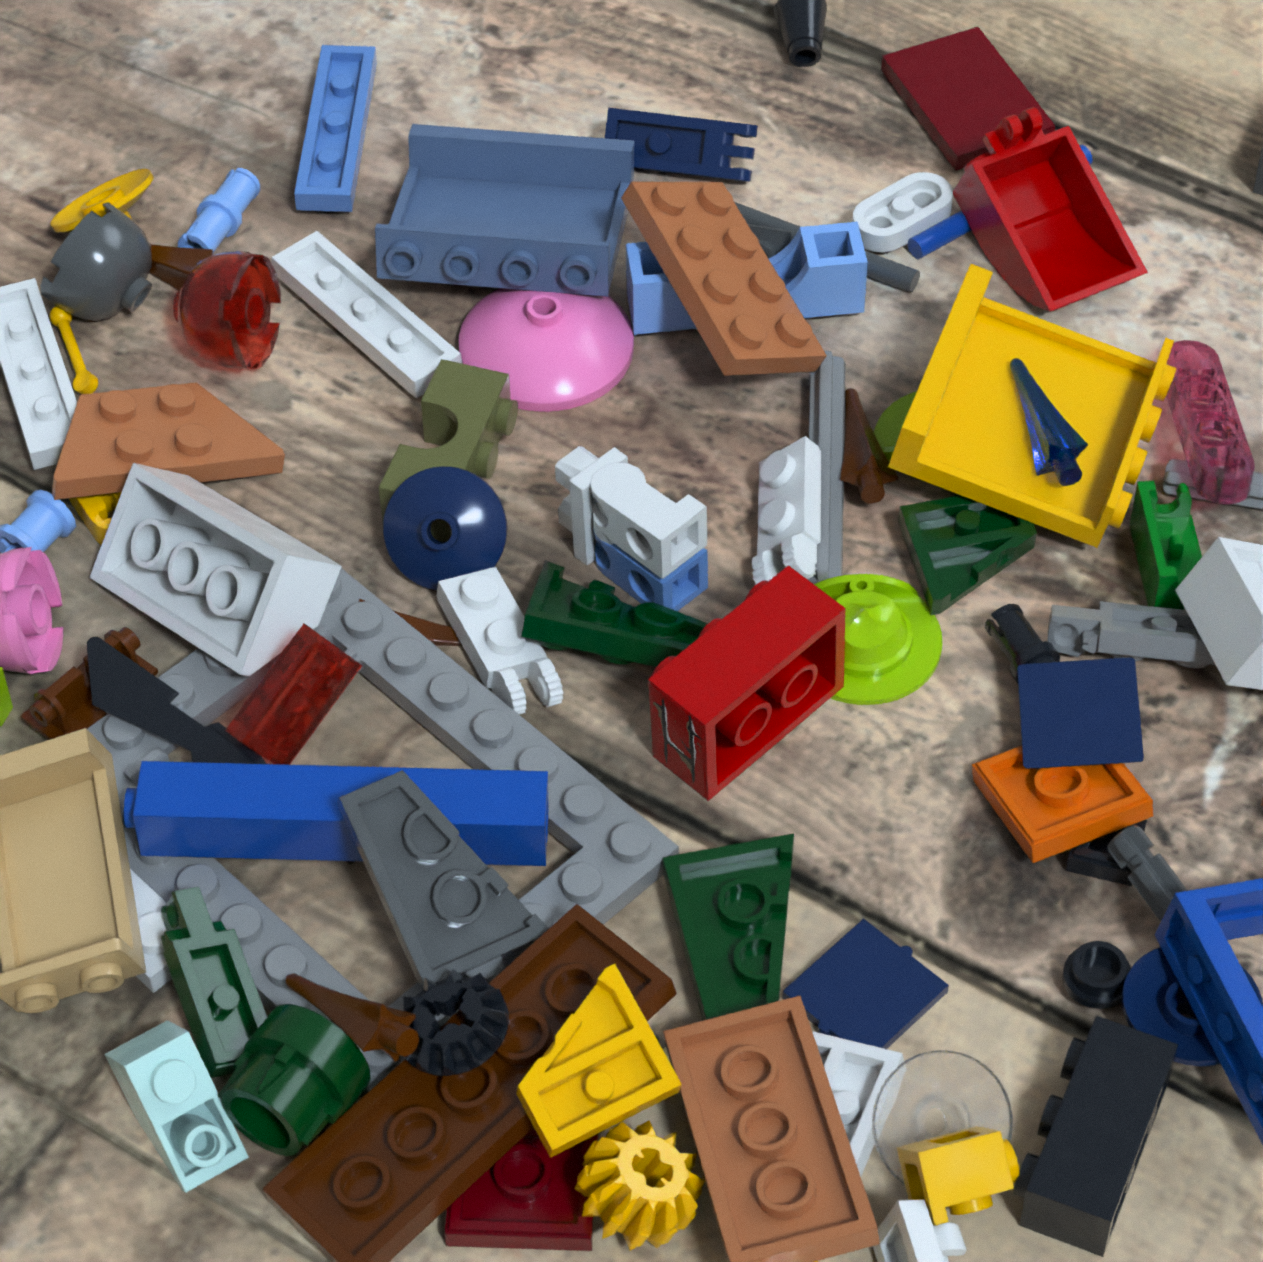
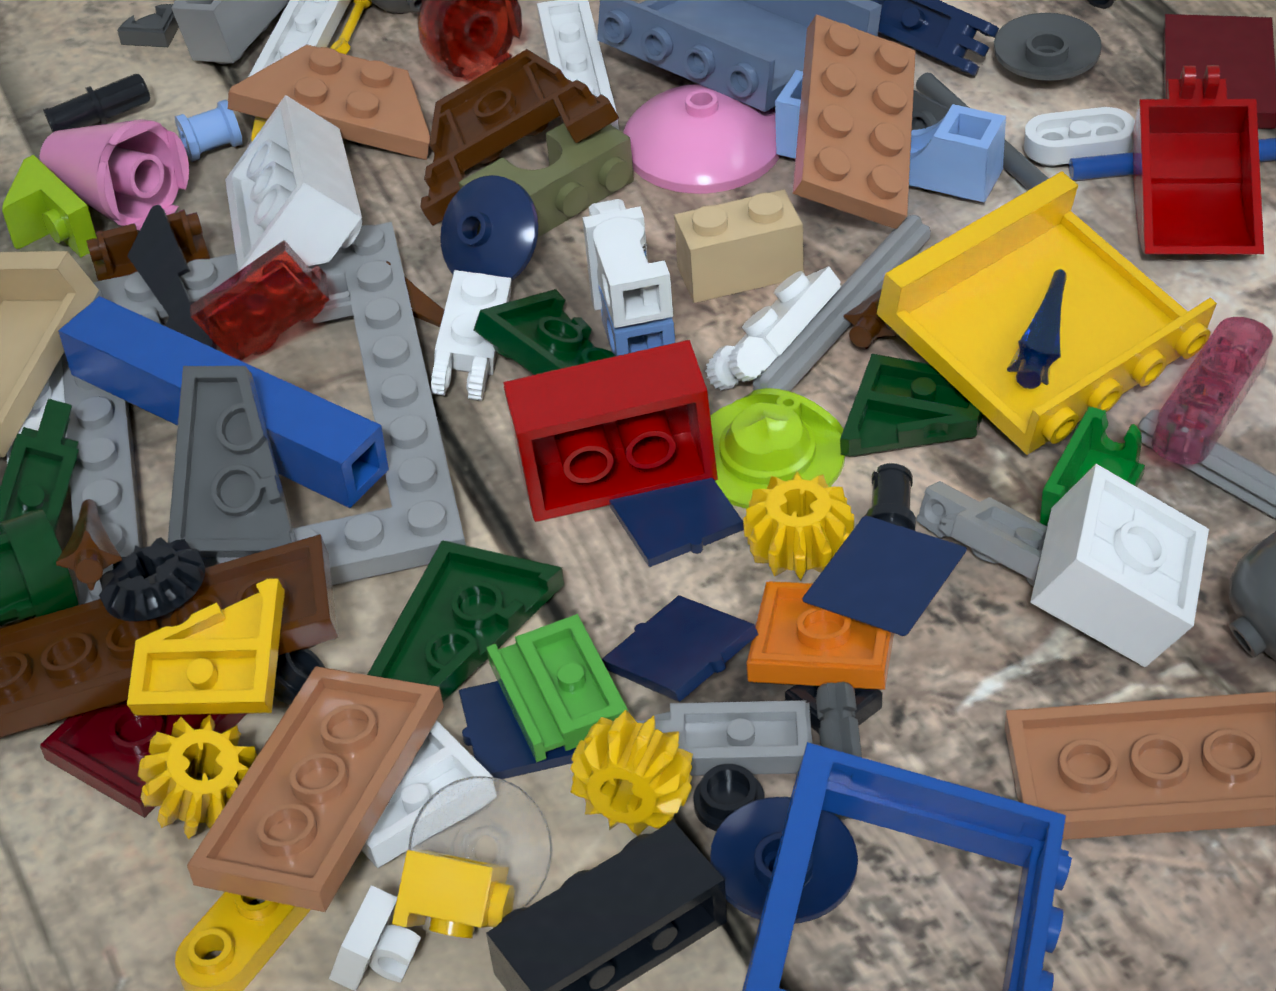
camera: 35 degrees right, 5 degrees down
(343, 390) = (499, 110): none -> reddish brown wing
(695, 440) = (738, 245): none -> tan brick
(807, 128) = (1047, 46): none -> dark grey dish
(836, 741) = (676, 519): none -> dark blue piece
(884, 945) = (555, 685): none -> bright green plate
(951, 859) = (679, 647): none -> dark blue piece
(962, 699) = (797, 524): none -> yellow gear
(1021, 991) = (631, 773): none -> yellow gear
(1051, 926) = (754, 735): none -> light grey hinge

